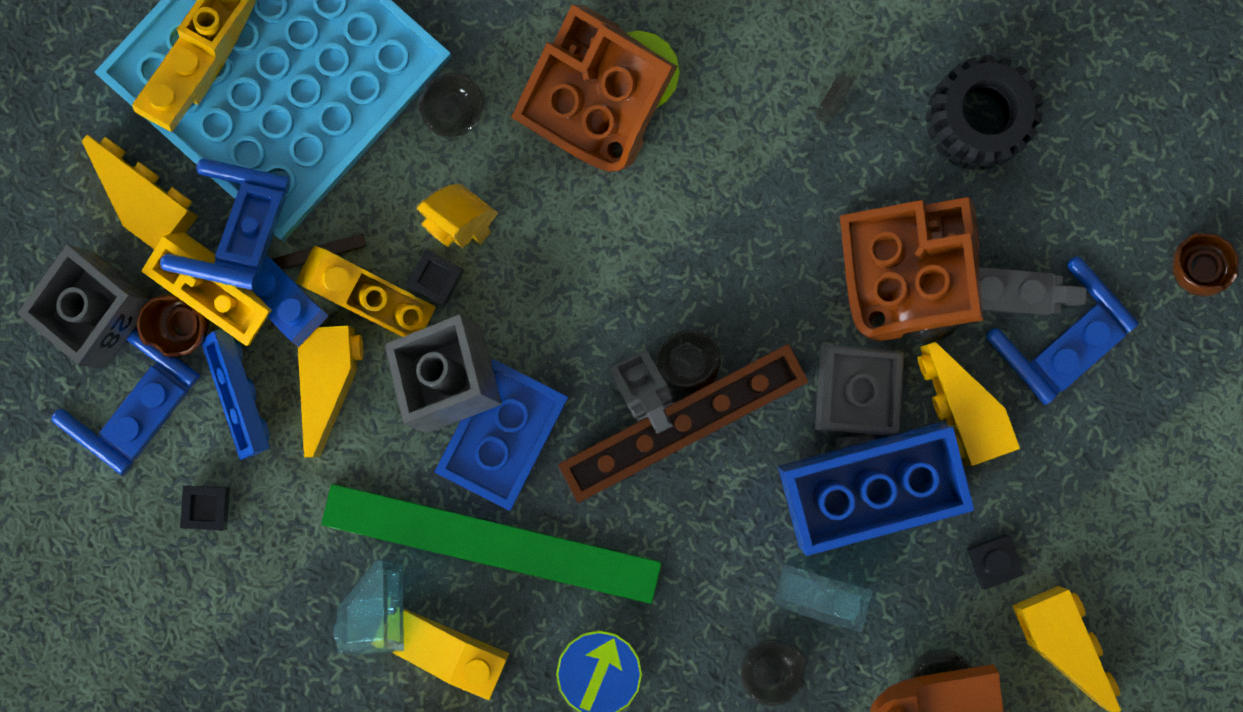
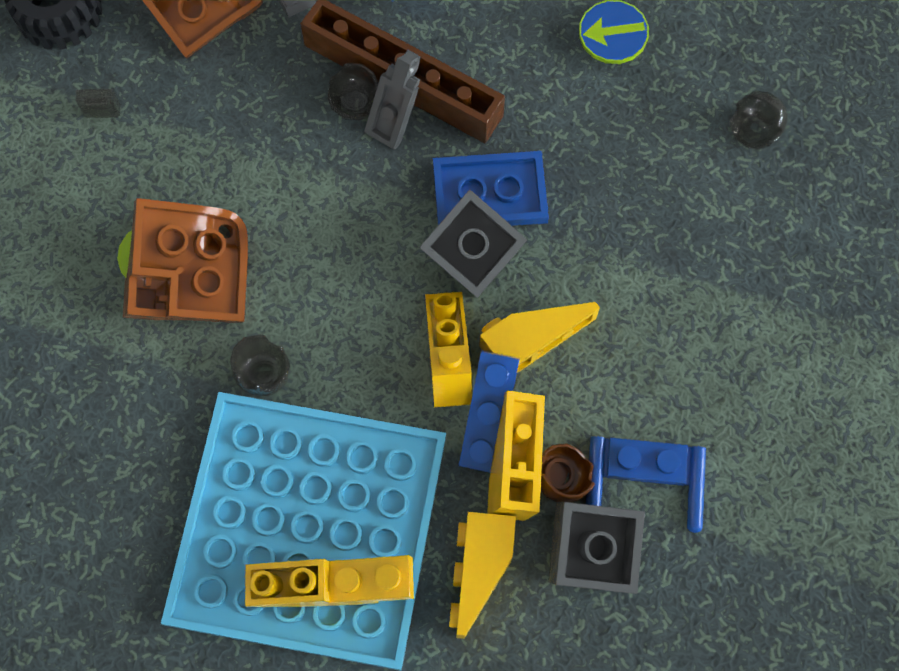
camera: 120 degrees left, 15 degrees down
(204, 507) = (686, 367): black plate -> none
(236, 394) = (587, 394): blue plate -> none
(246, 231) = (451, 450): blue plate -> none
(335, 247) = (427, 396): dark brown piece -> none
(372, 613) = (682, 198): clear light blue slope -> none
(435, 277) = (403, 304): black plate -> none
(452, 655) = (671, 138): yellow slope -> none
(456, 216) = (346, 280): yellow slope -> none
(491, 543) = (575, 160): green tile -> none

